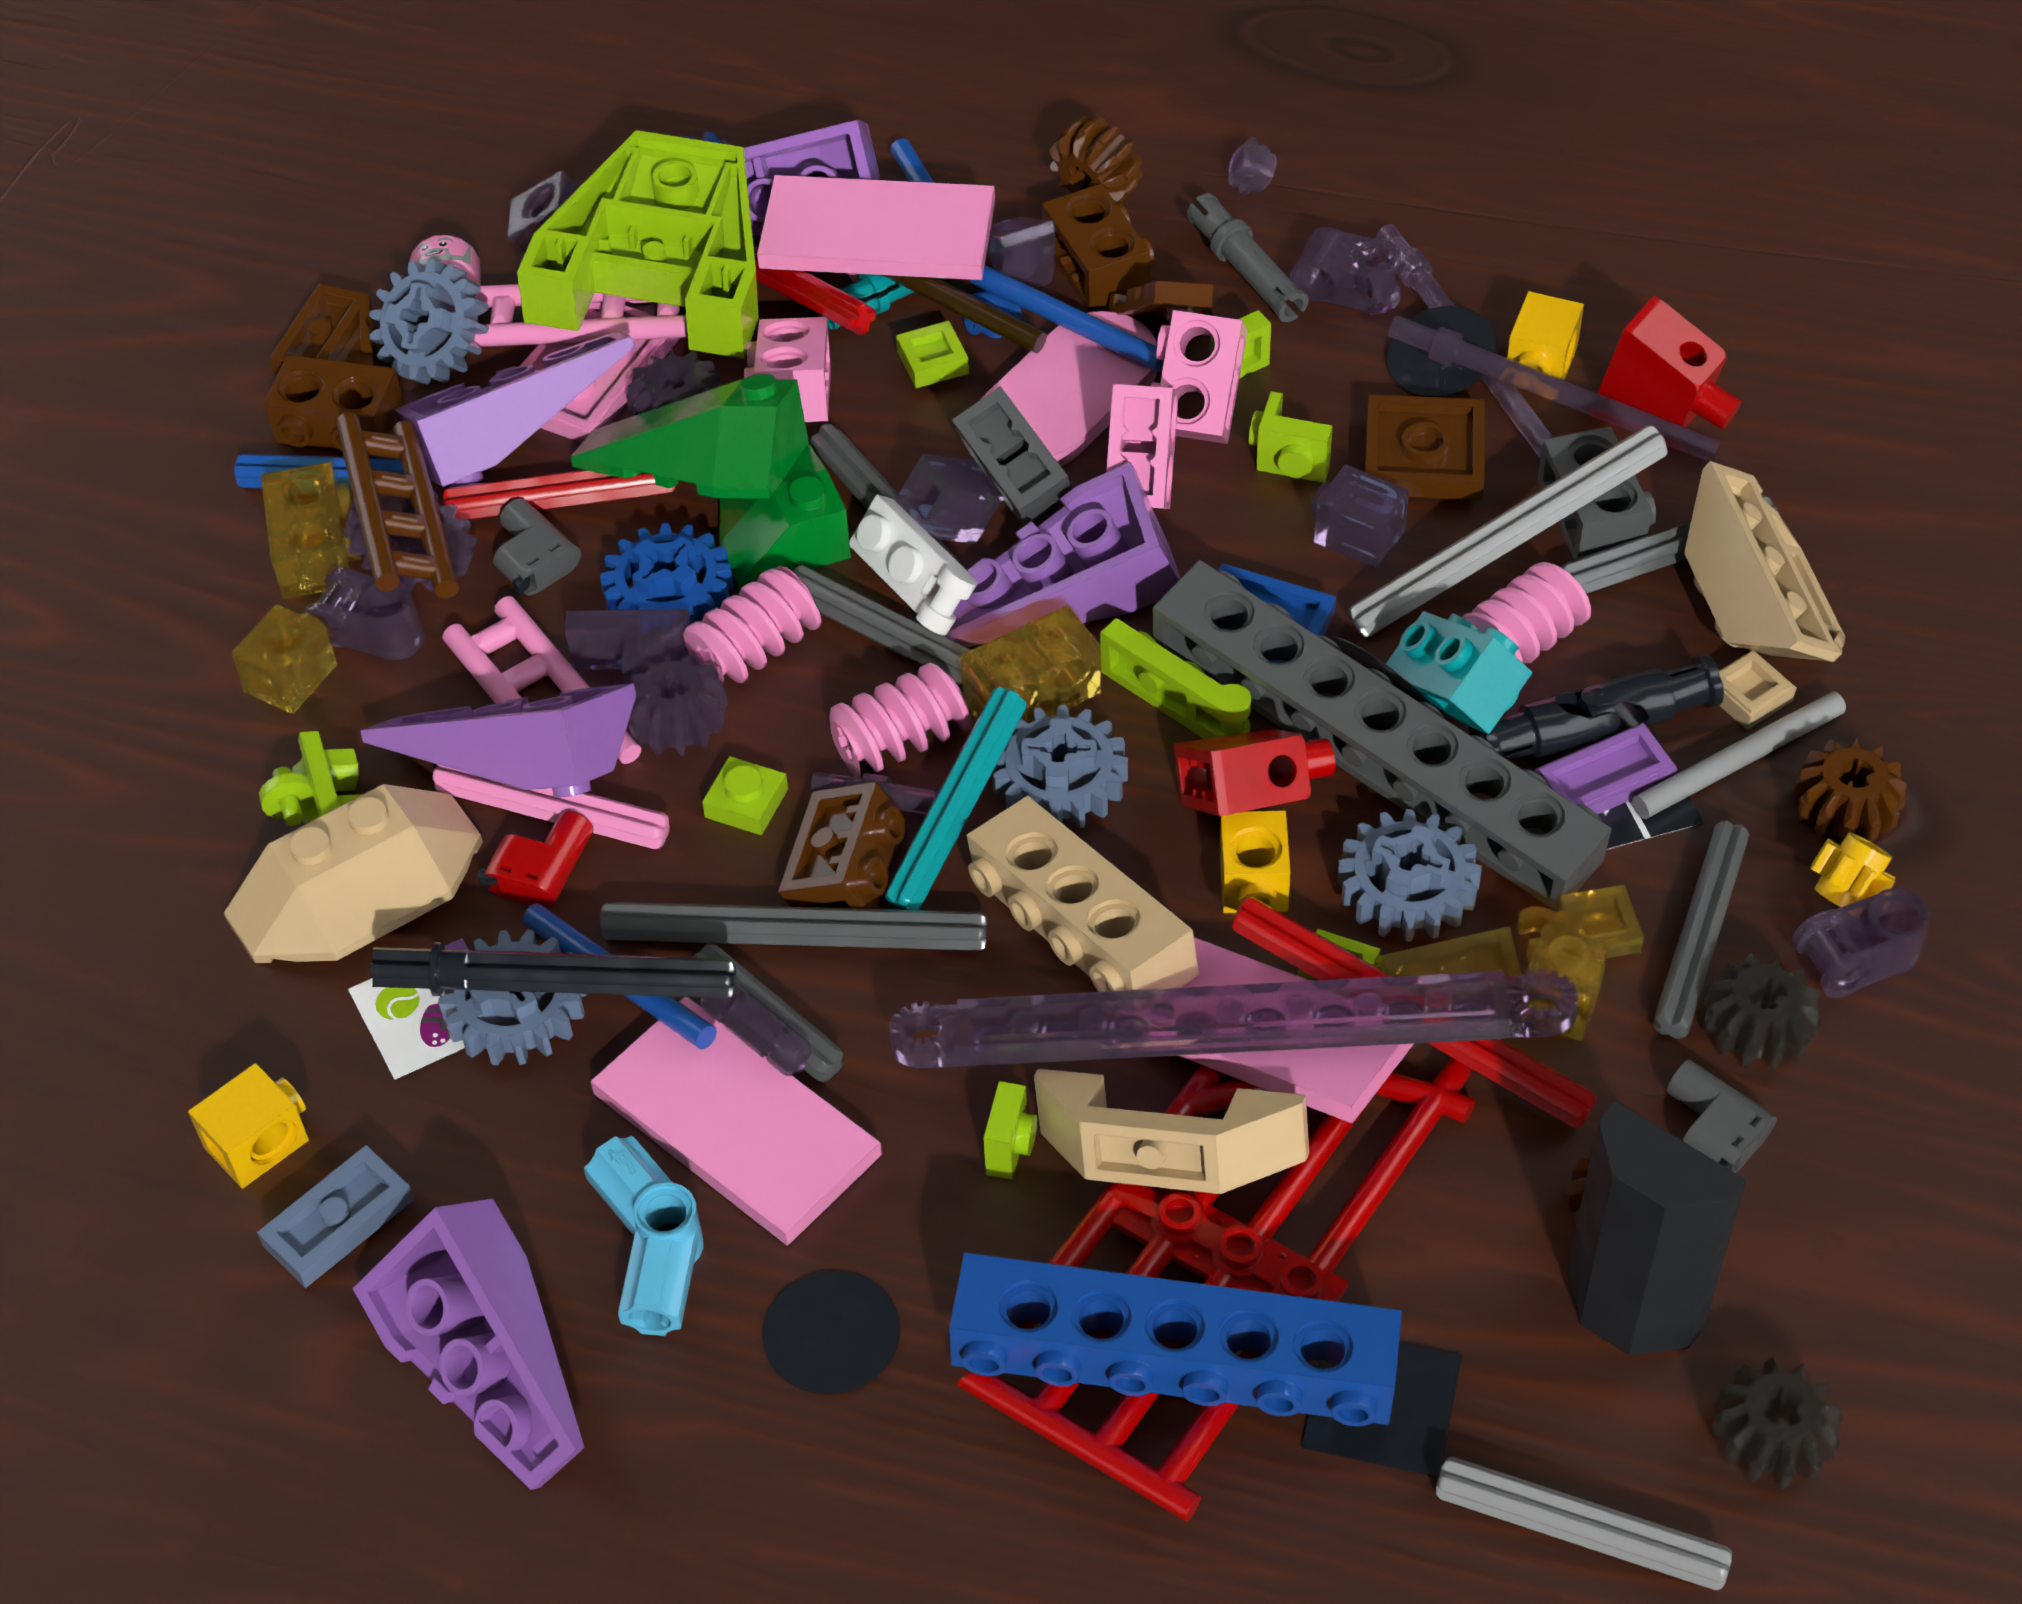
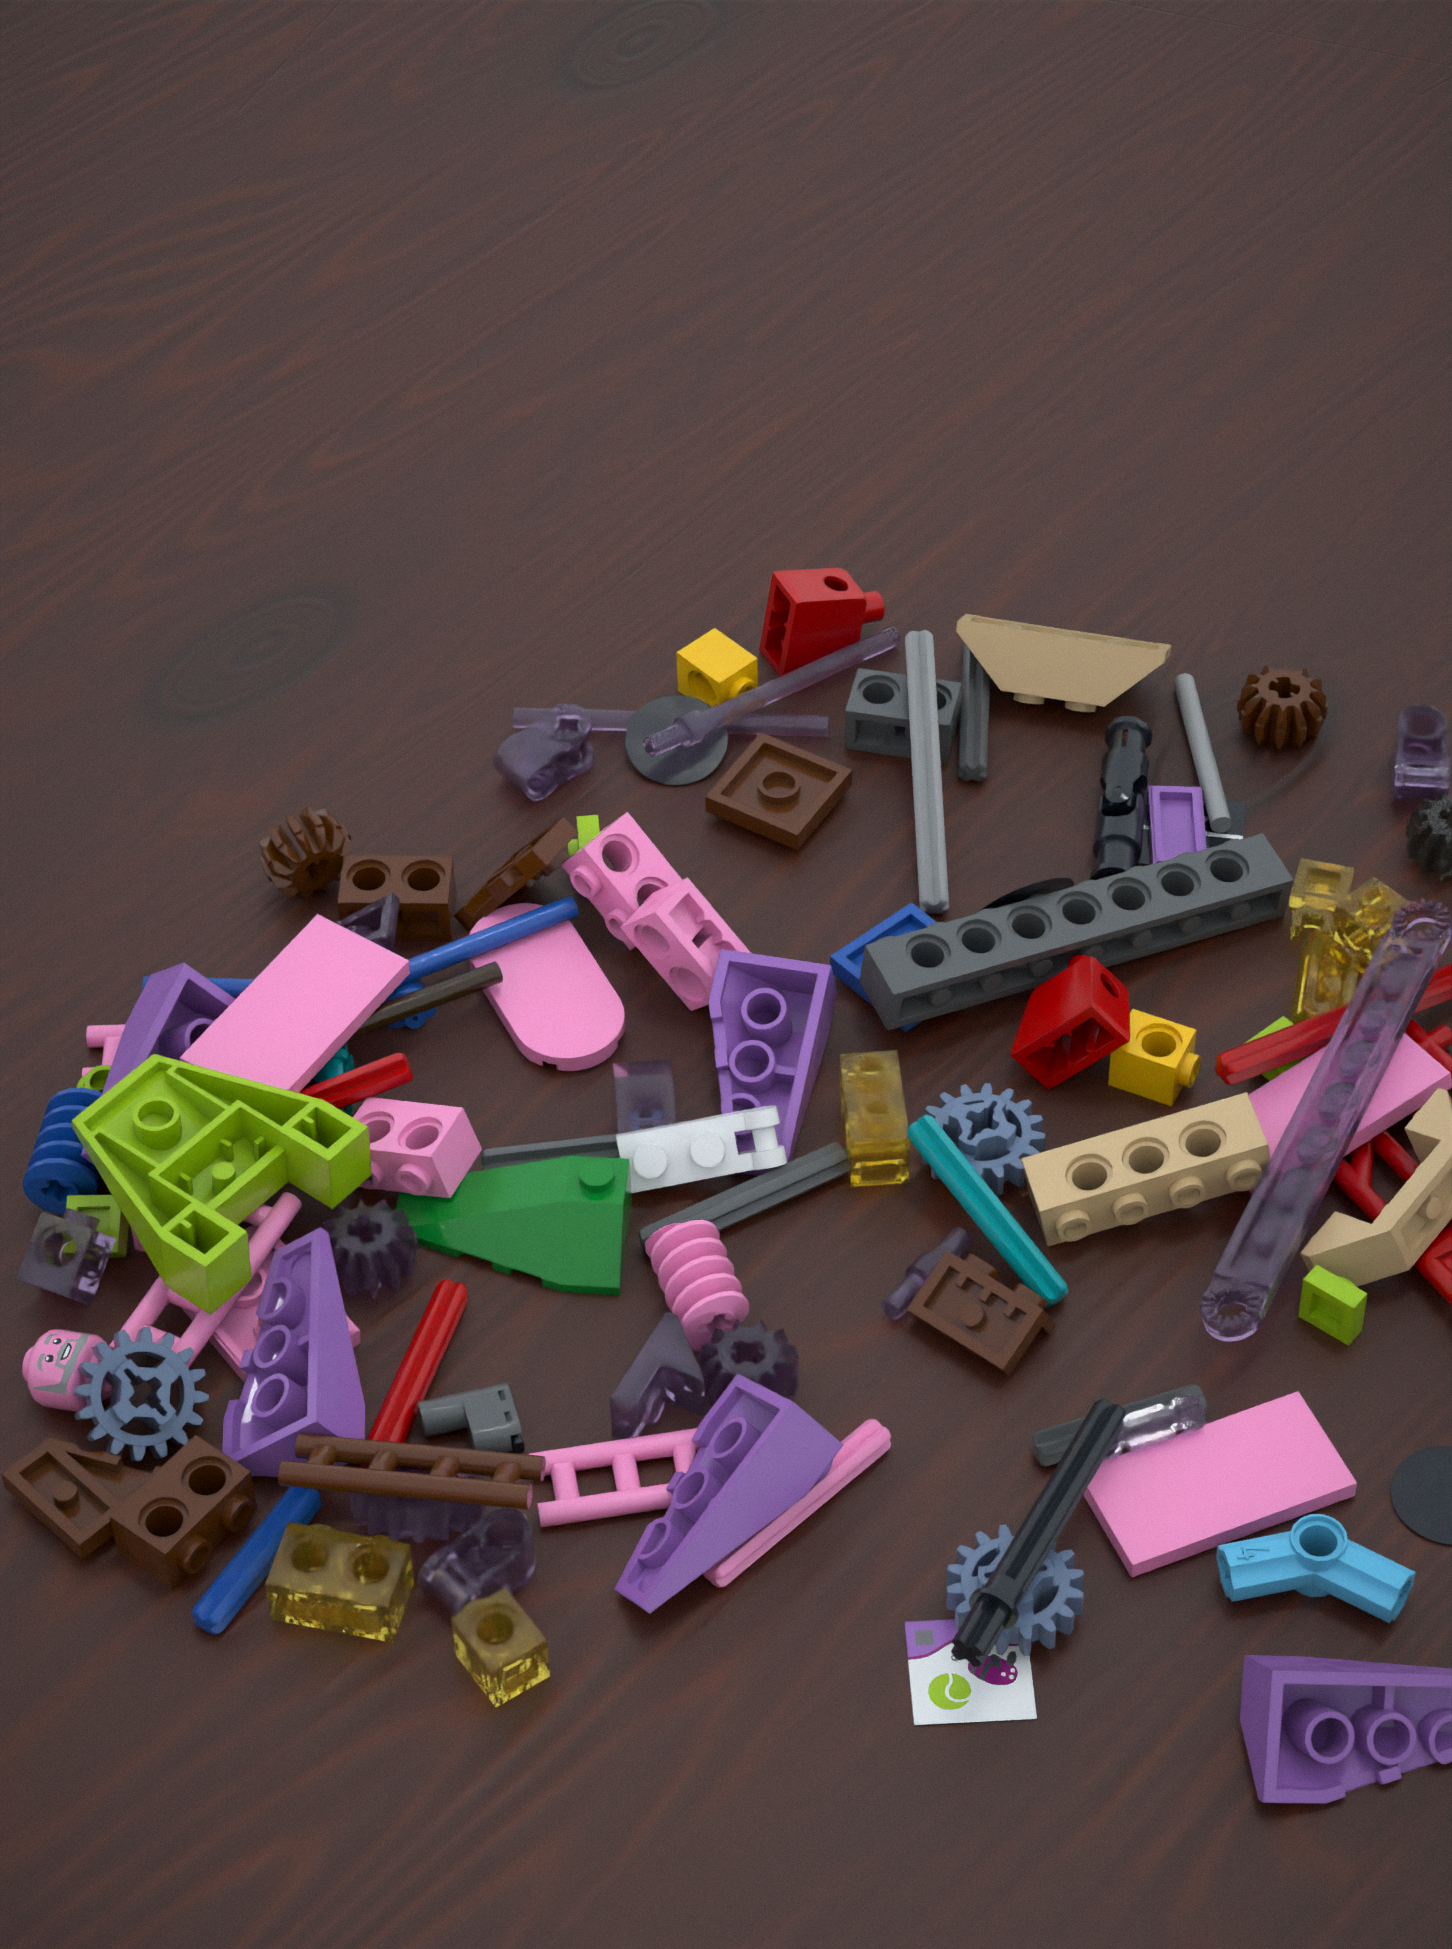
camera: 65 degrees left, 5 degrees down
(250, 1124) = (1052, 1827): yellow brick -> none
(312, 784) = (691, 1667): lime hips -> none
(335, 1216) = (1181, 1792): sand blue plate -> none
(353, 875) = (815, 1676): tan wedge -> none
(534, 869) = (870, 1532): red piece -> none
(663, 1008) = (1013, 1515): blue bar -> none
(668, 573) = (592, 1327): blue gear -> none
(723, 440) = (481, 1216): green wedge -> none
(745, 795) = (871, 1363): lime plate -> none
(794, 926) = (1035, 1380): dark grey axle -> none
(898, 715) = (870, 1222): bright pink piece -> none
(932, 354) = (442, 1054): lime plate -> none
(1013, 457) = (638, 1028): dark grey brick -> none
(1173, 684) = (948, 1031): lime plate -> none
(1234, 242) = (478, 810): dark grey pin -> none
(1251, 167) = (388, 759): clear purple plate -> none
(1290, 444) = (723, 868): lime bracket -> none
(1359, 515) = (832, 855): clear purple brick -> none
(1409, 875) = (1217, 973): sand blue gear -> none
(1461, 669) = (1069, 844): teal brick -> none
(1535, 609) = (1011, 809): bright pink piece -> none
(1701, 930) = (1351, 840): dark grey axle -> none
(1754, 690) = (1149, 710): tan tile -> none
(1851, 870) = (1360, 735): yellow gear -> none

